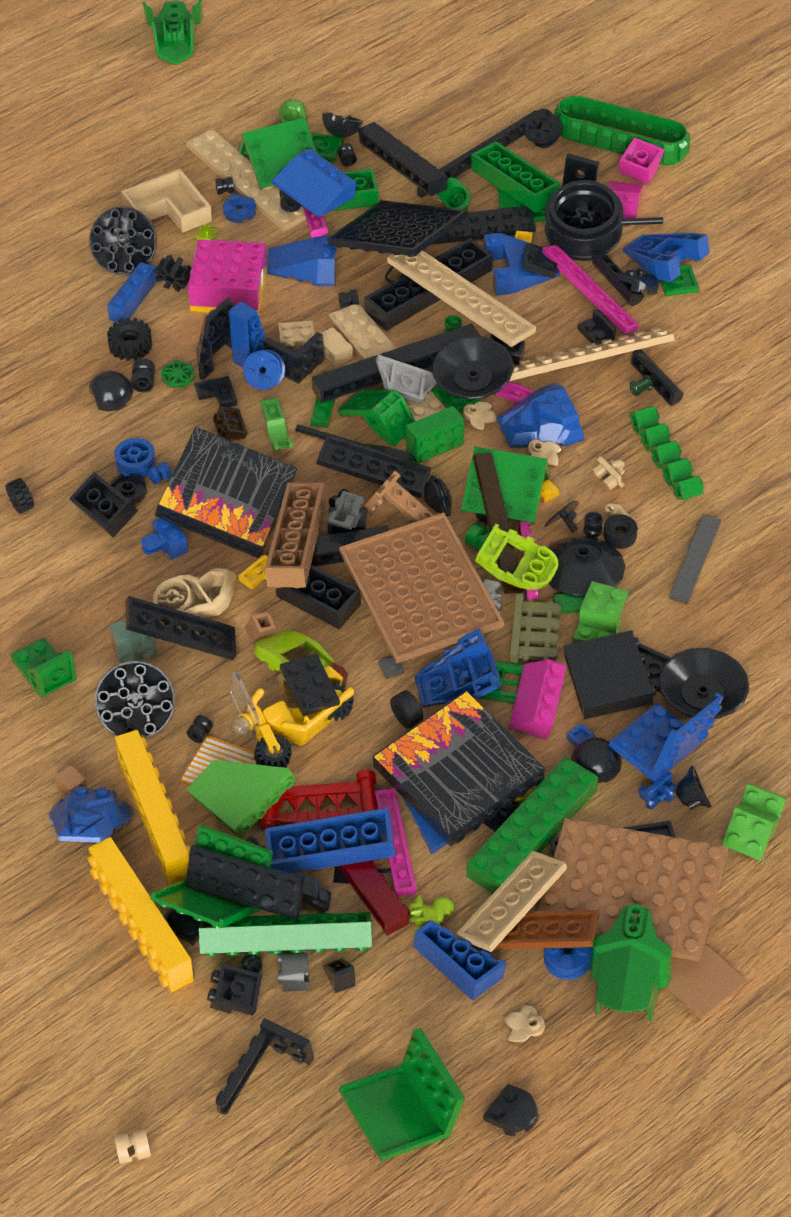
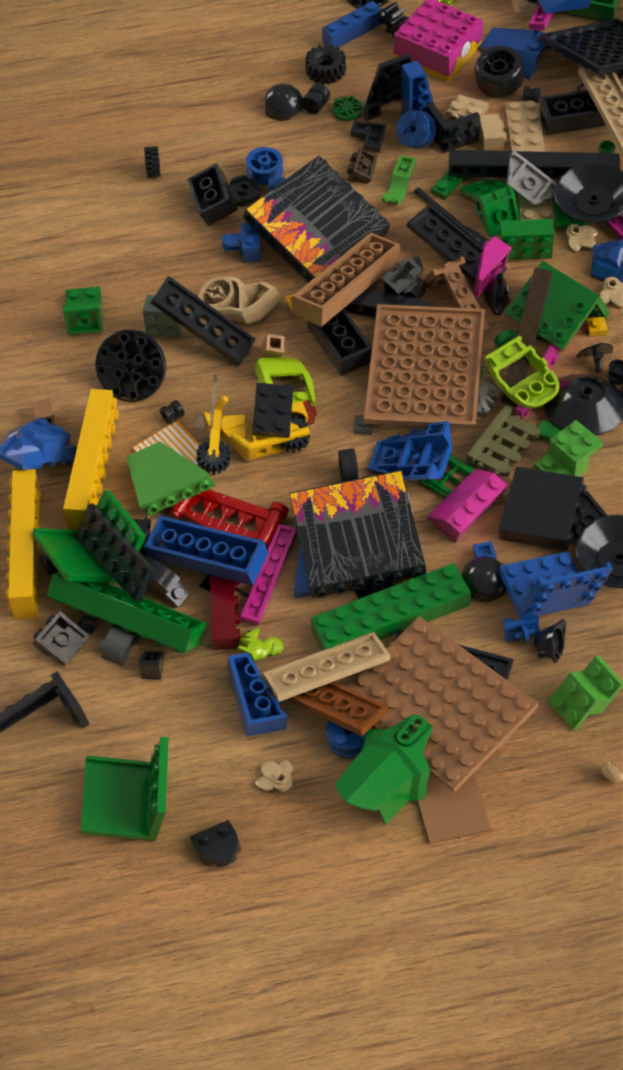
camera: 30 degrees right, 5 degrees up
(306, 287) = (499, 71): none -> black wheel
(419, 469) = (491, 263): none -> dark pink slope

